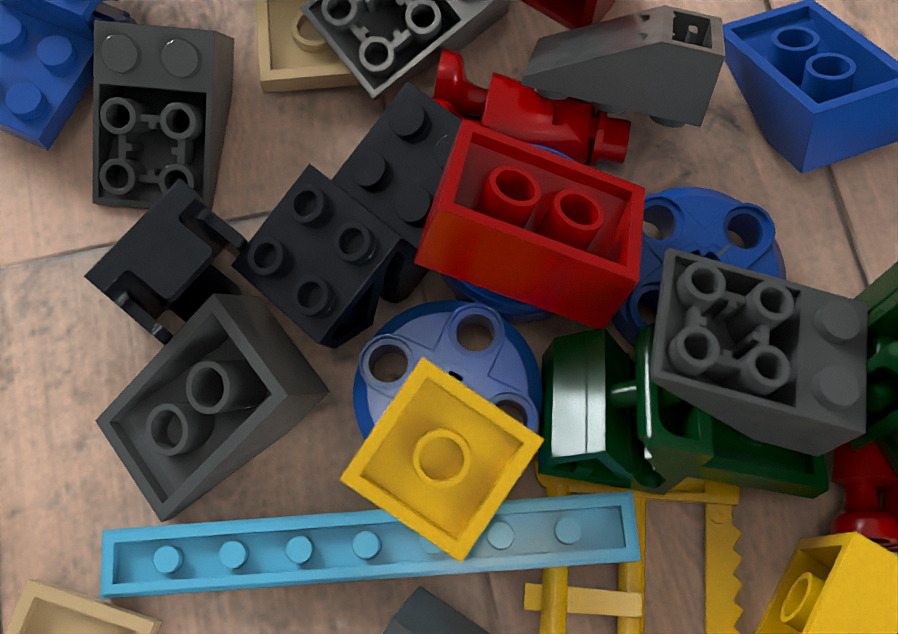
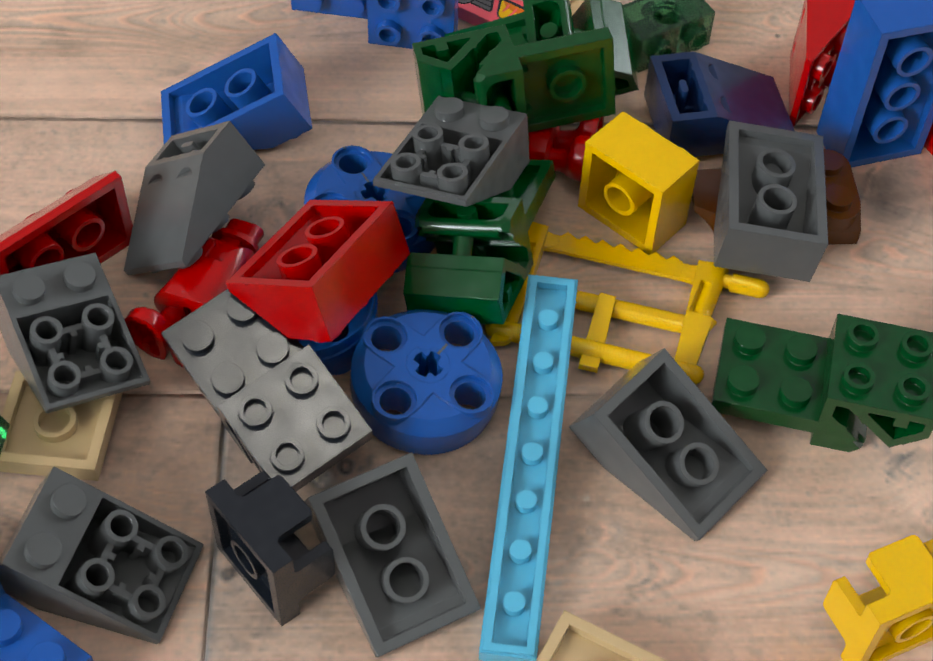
camera: 80 degrees left, 20 degrees down
(442, 459) = (483, 358): yellow panel -> none

